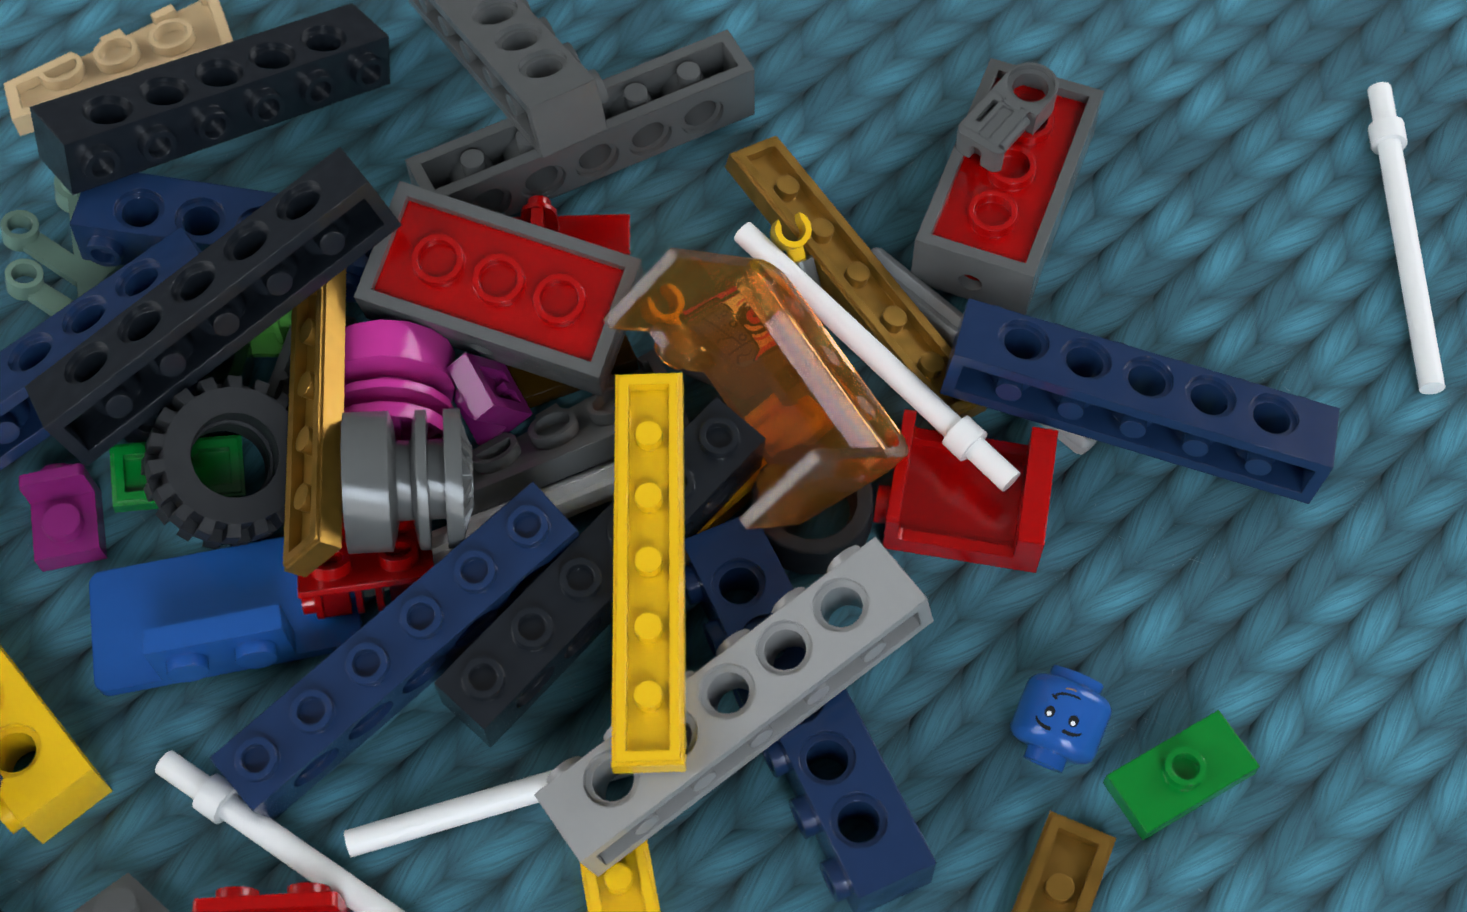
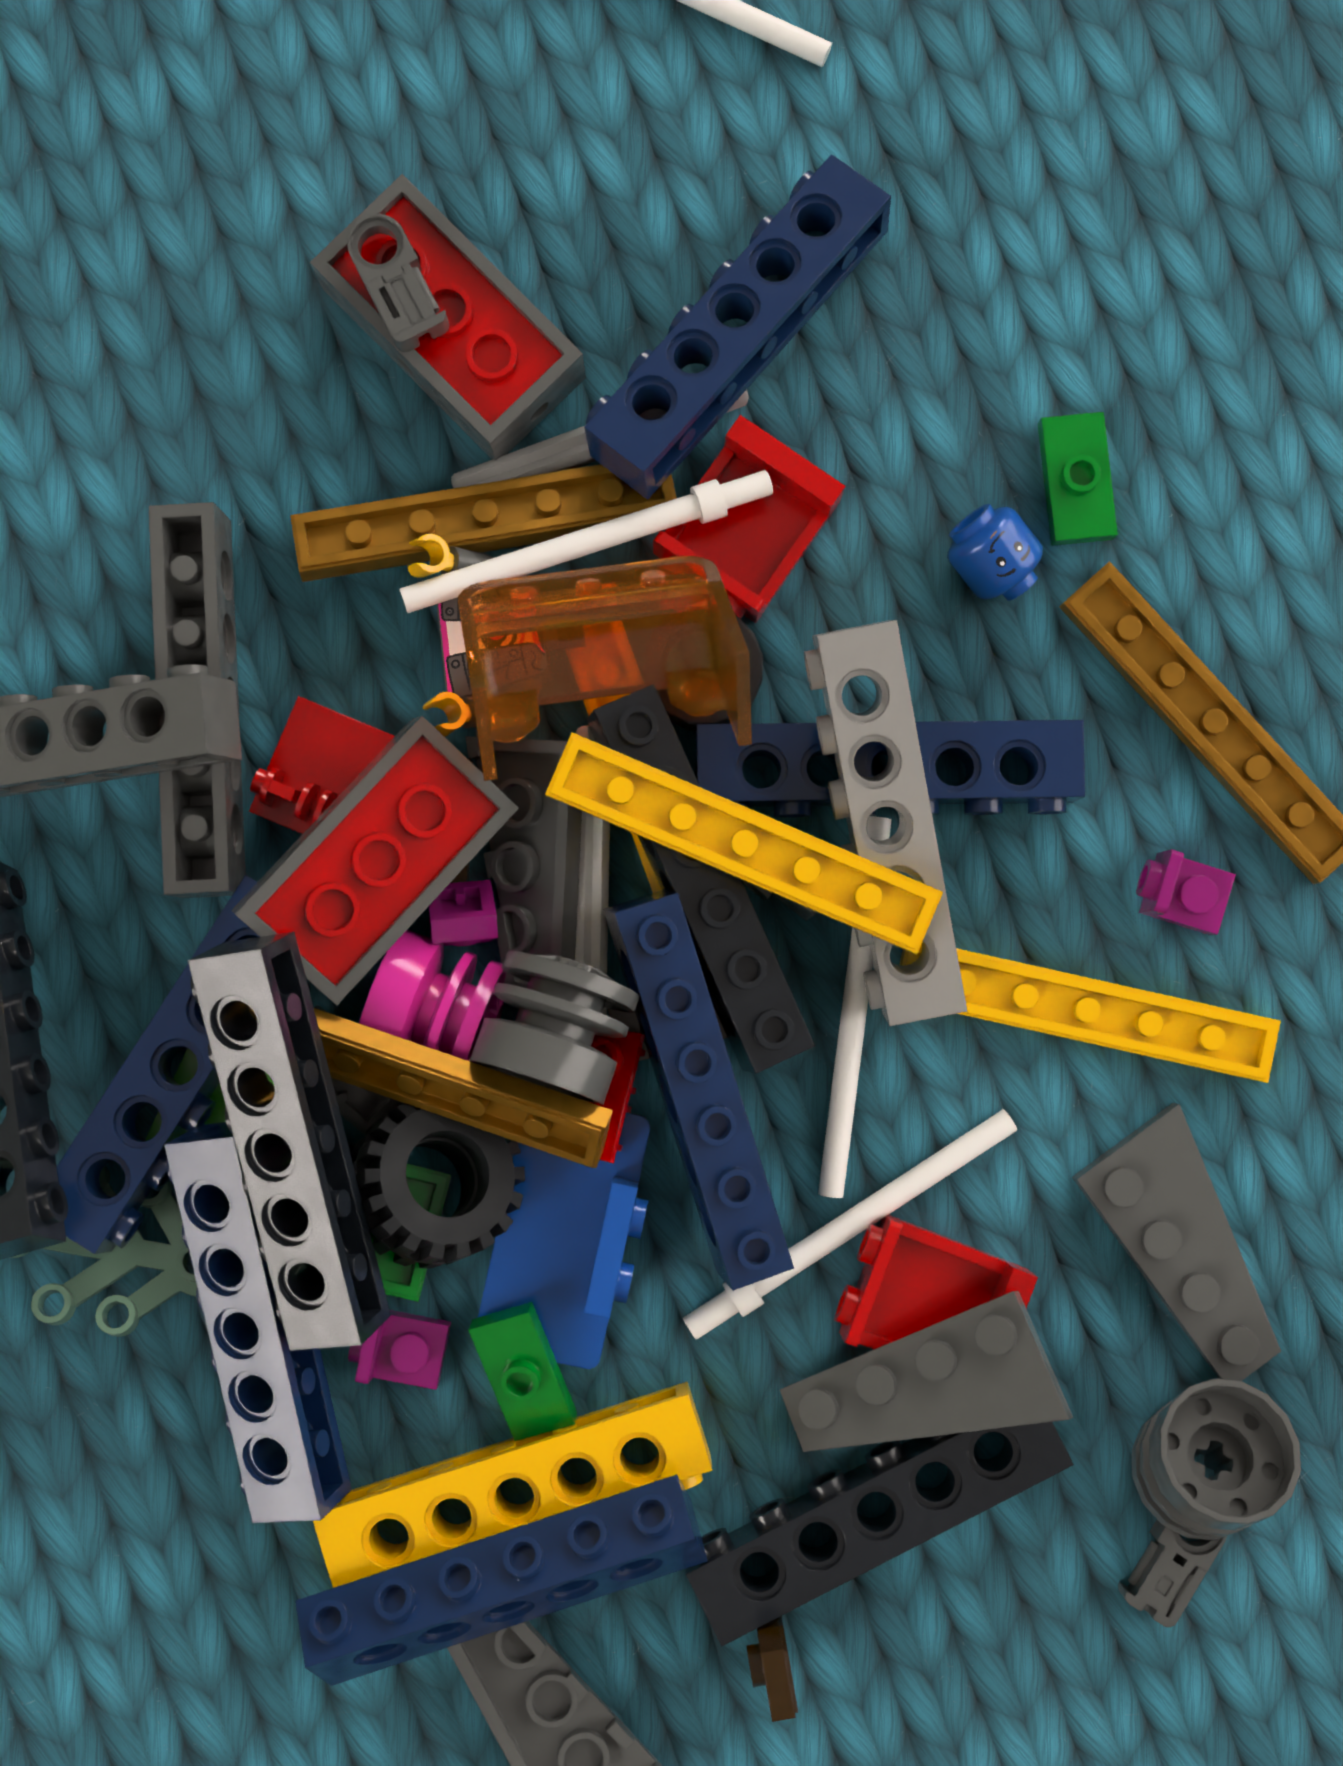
camera: 70 degrees left, 25 degrees up
(73, 624) = (523, 1371): none -> green plate

